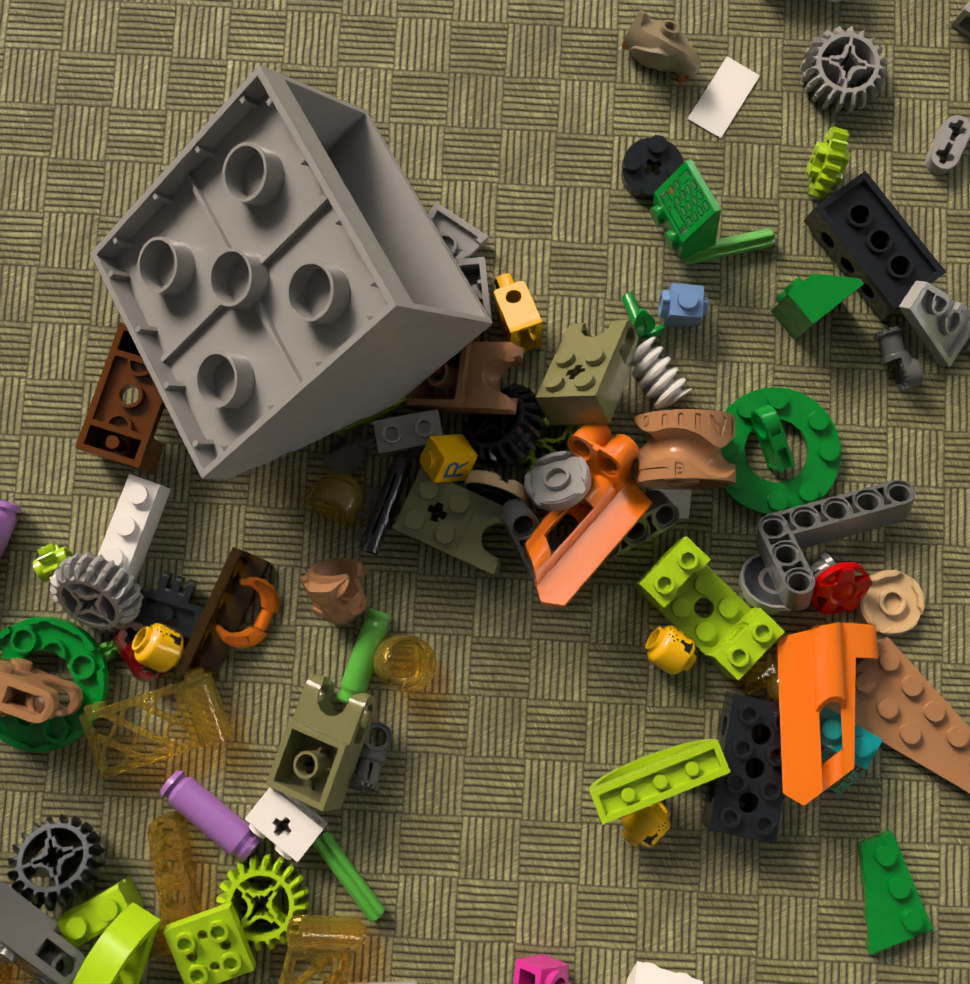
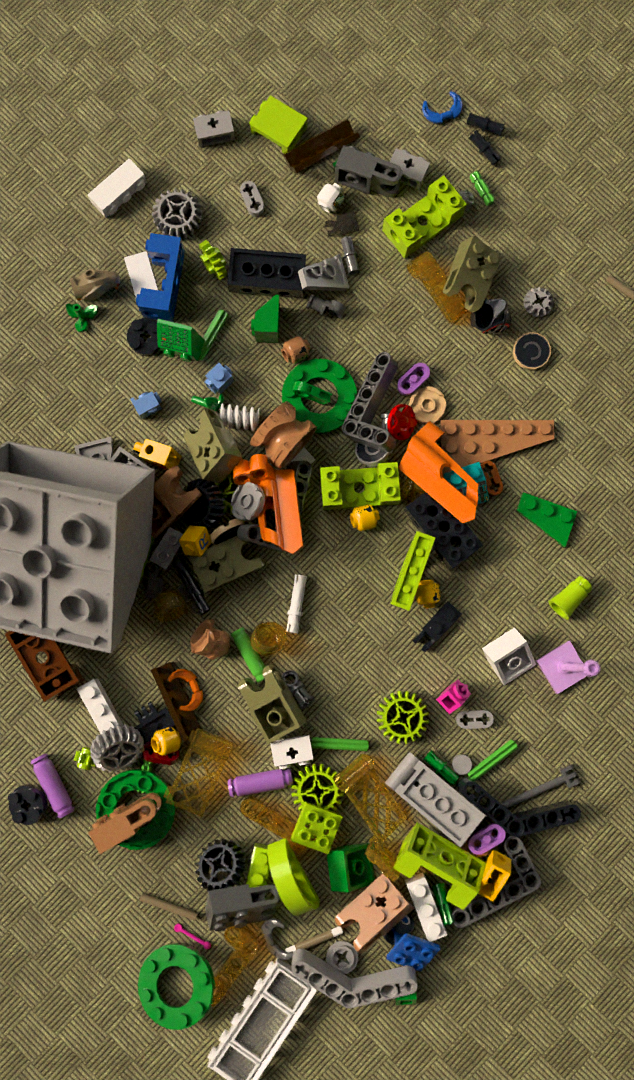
camera: 50 degrees left, 0 degrees up
(466, 938) = (387, 724): none -> lime gear
(481, 659) = (296, 604): none -> white pin
(568, 244) = (147, 404): none -> medium blue brick
(606, 57) = (76, 311): none -> green plant
(616, 871) = (438, 625): none -> black hinge
(784, 103) = (169, 253): none -> blue plate
(807, 369) = (295, 350): none -> medium nougat head
(877, 776) = (495, 477): none -> dark orange beam
(906, 553) = (412, 379): none -> medium lavender plate

